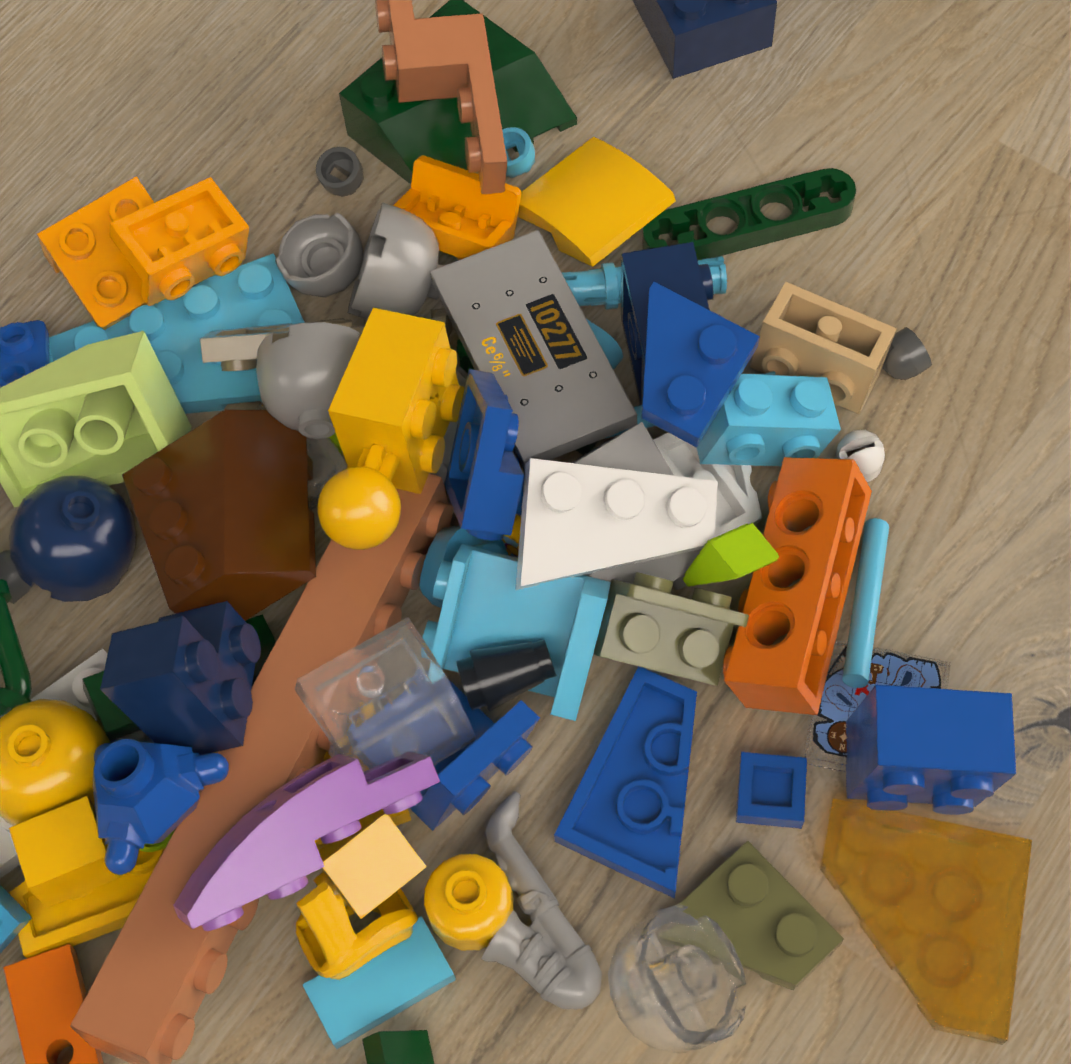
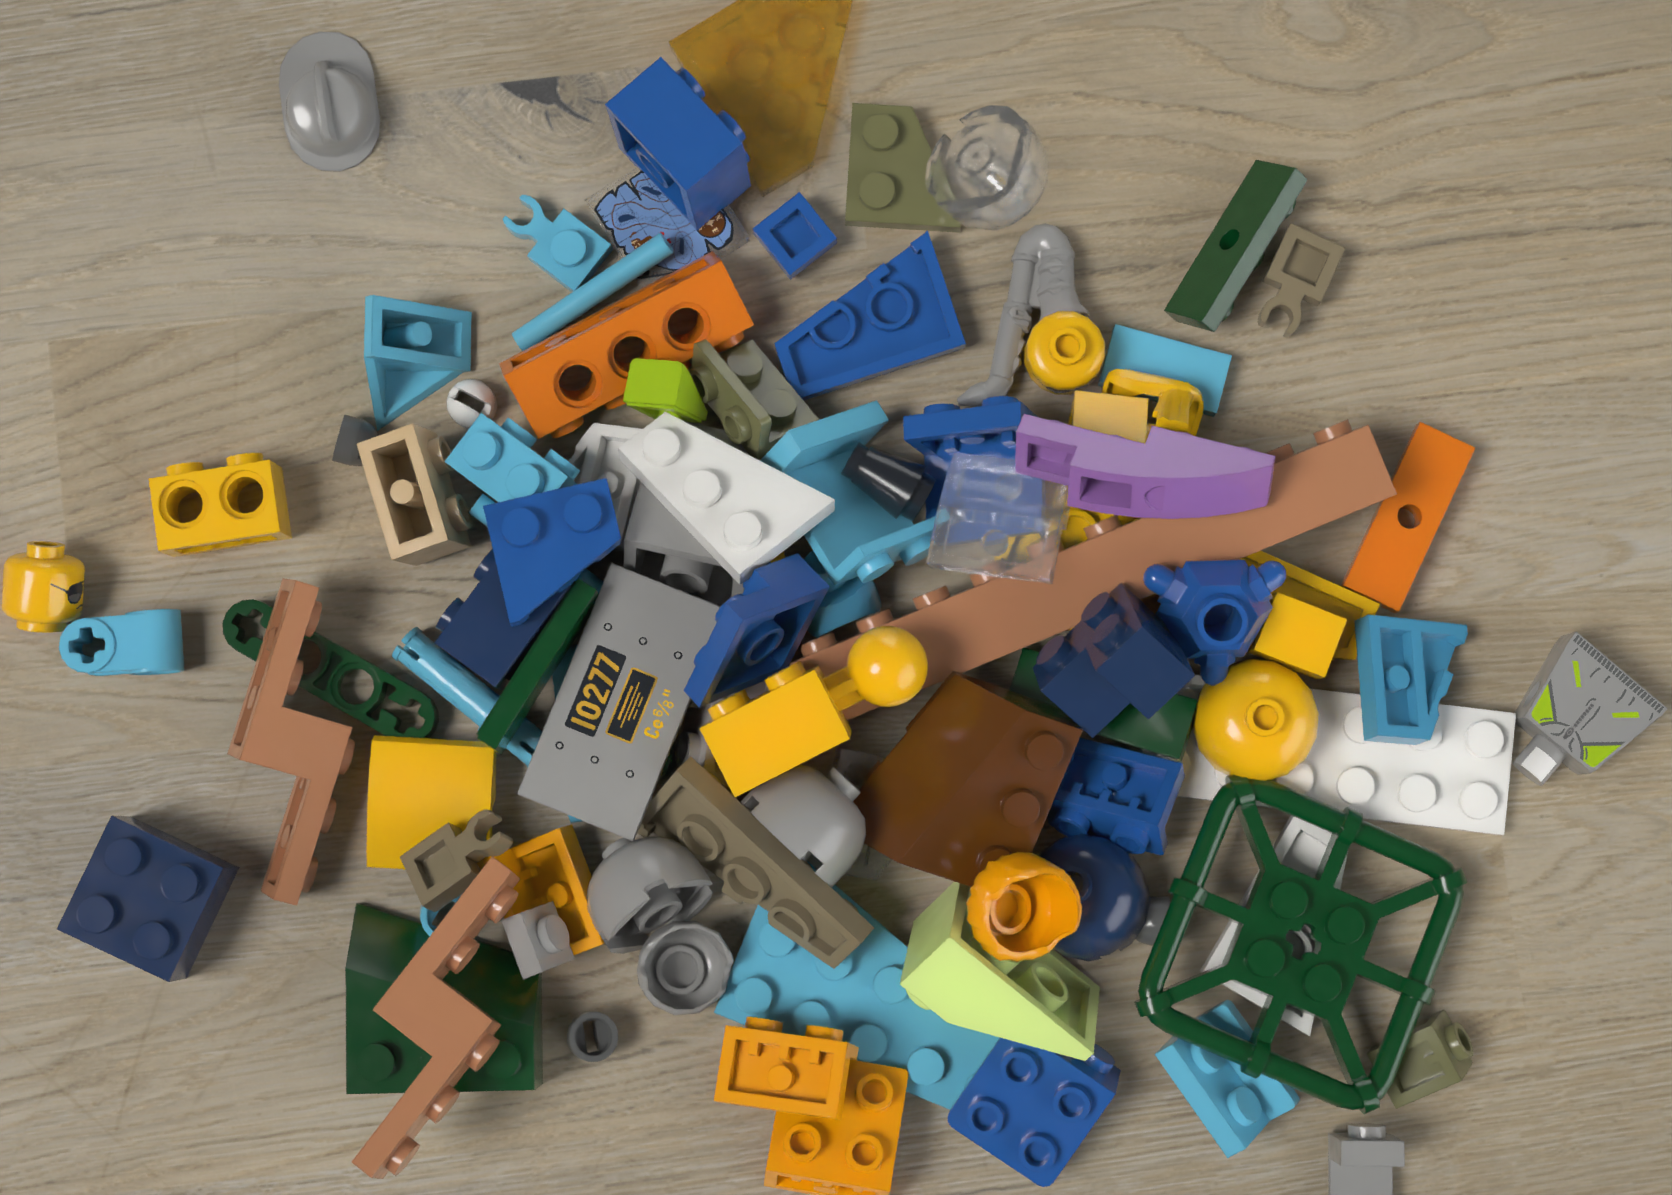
camera: 135 degrees left, 20 degrees up
(87, 618) = (1117, 796): none -> blue bracket
(100, 449) = (1022, 907): none -> light orange hair
(431, 175) = (538, 939): none -> light grey plate
(540, 166) = (448, 859): none -> dark tan plate
(611, 306) = (537, 666): none -> dark green tile
(722, 147) = (292, 742): none -> nougat bracket
(891, 109) = (134, 643): none -> medium azure piece
(926, 622) = (564, 247): none -> medium azure plate
(930, 231) = (220, 521): none -> yellow brick
(942, 440) = (411, 352): none -> medium azure slope
(981, 93) = (43, 587): none -> yellow head

